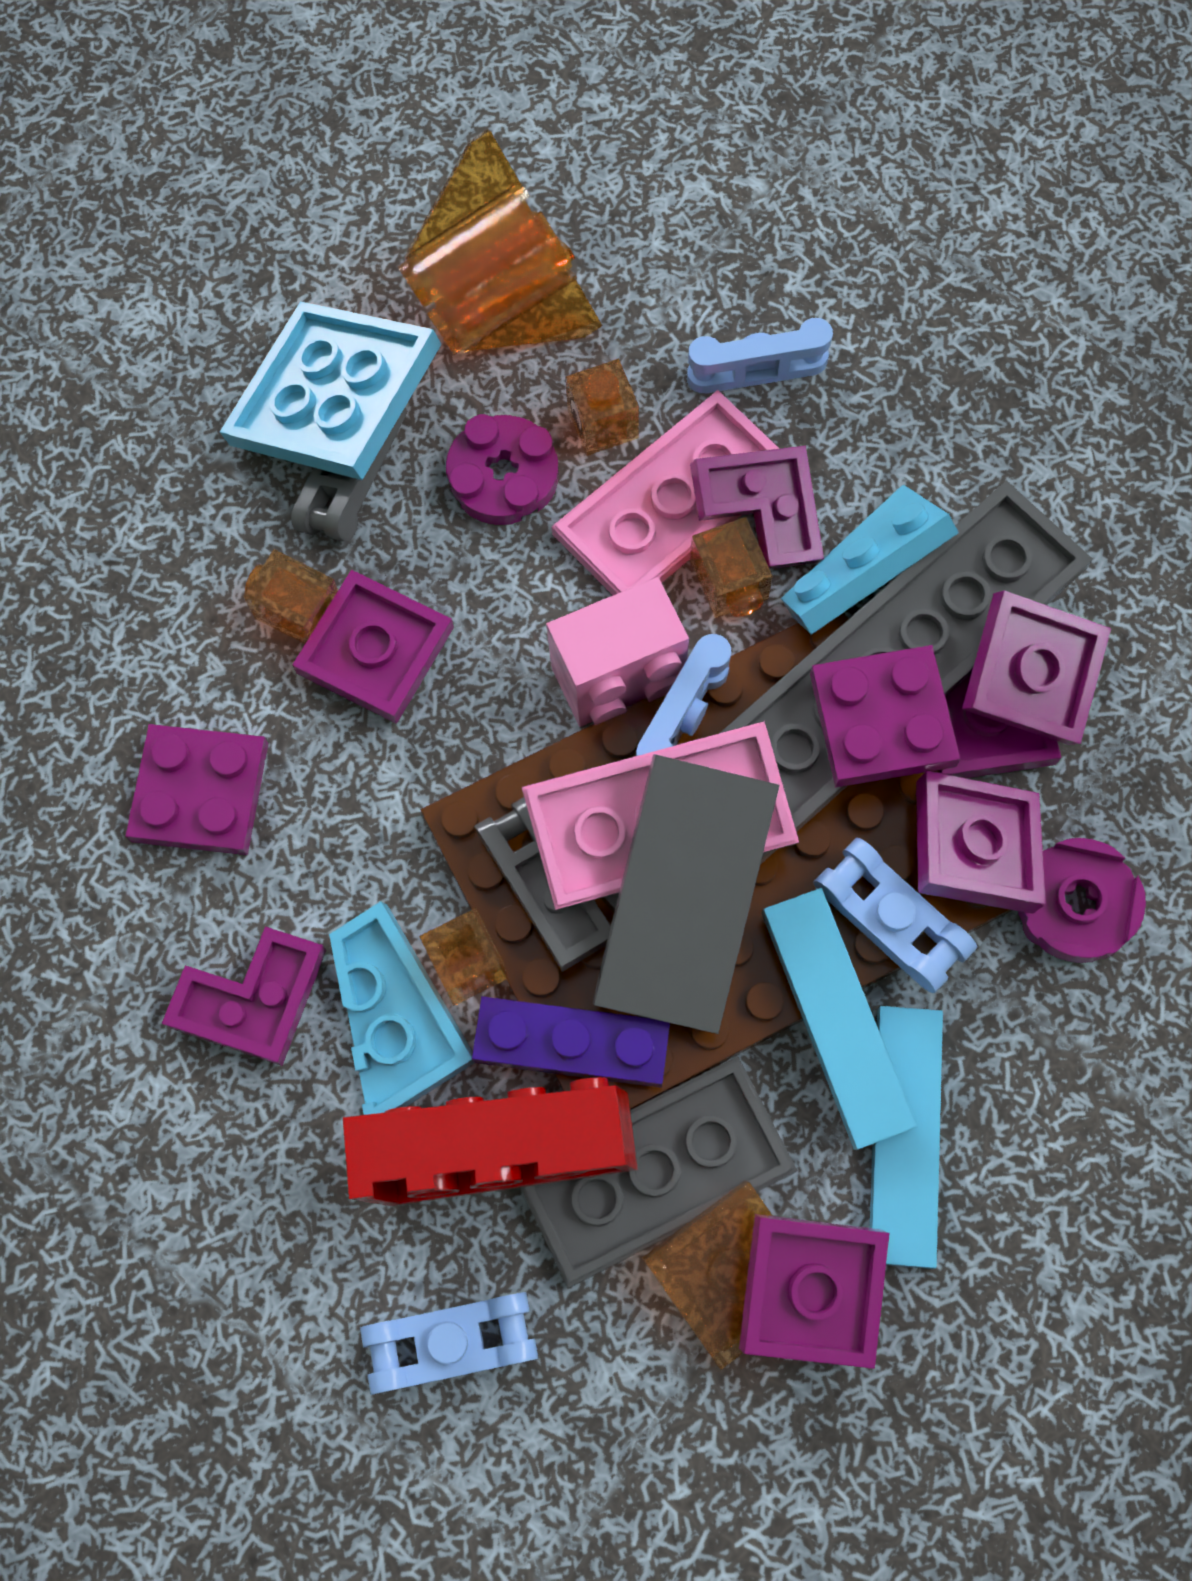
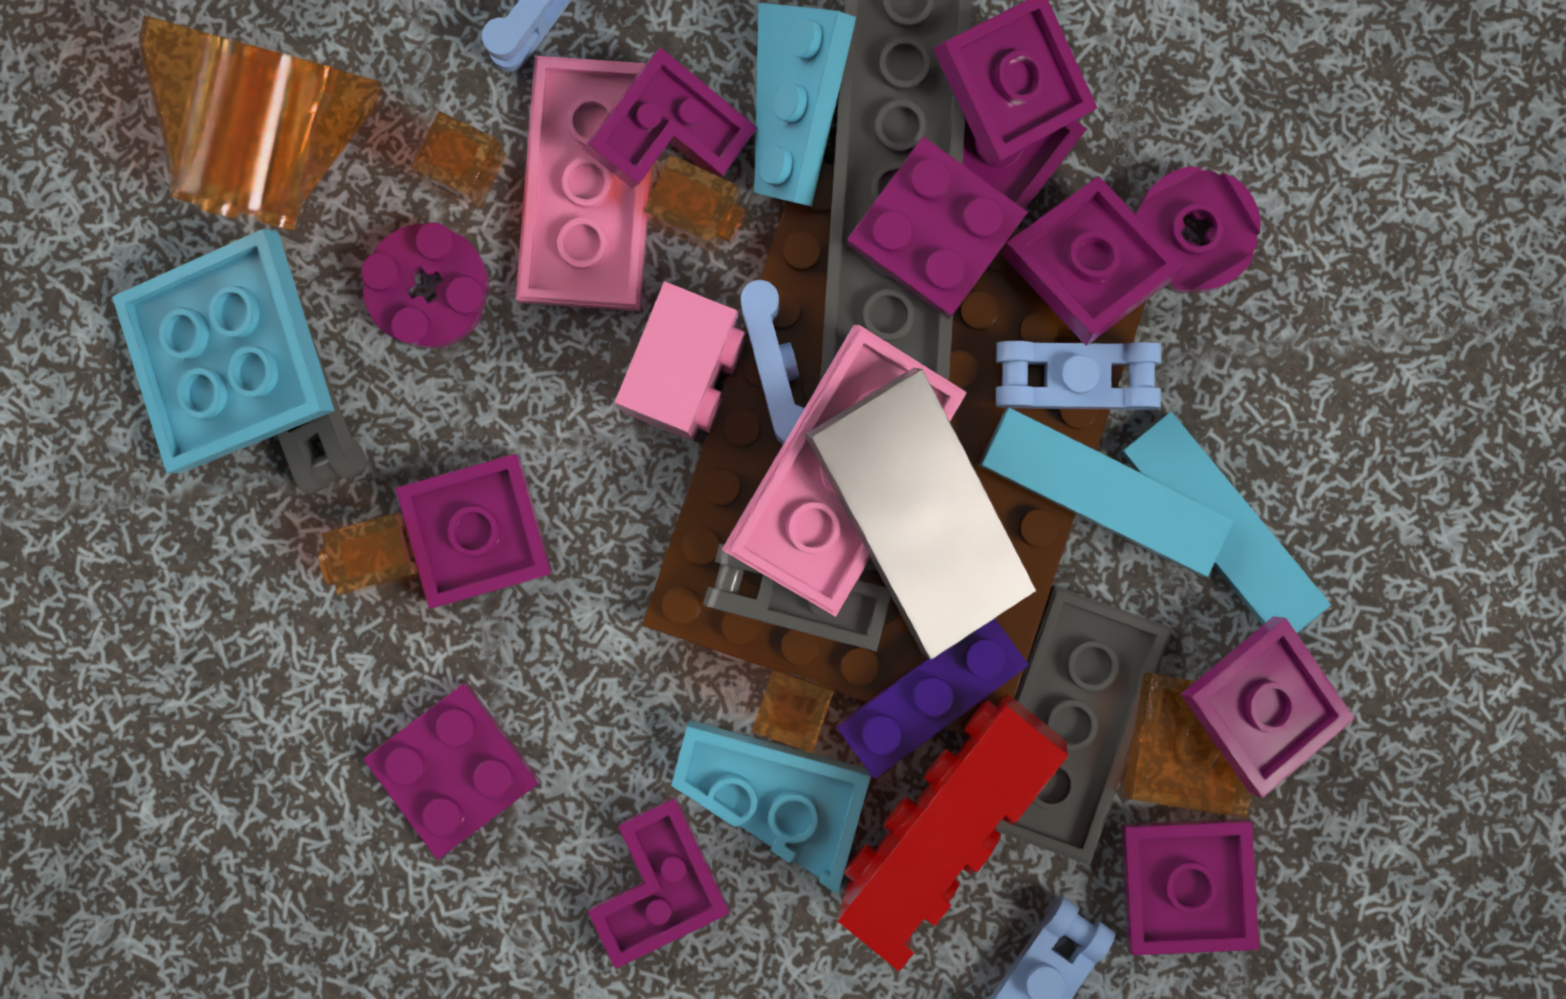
camera: 45 degrees left, 15 degrees up
(627, 1379) = (1189, 887): none -> magenta plate

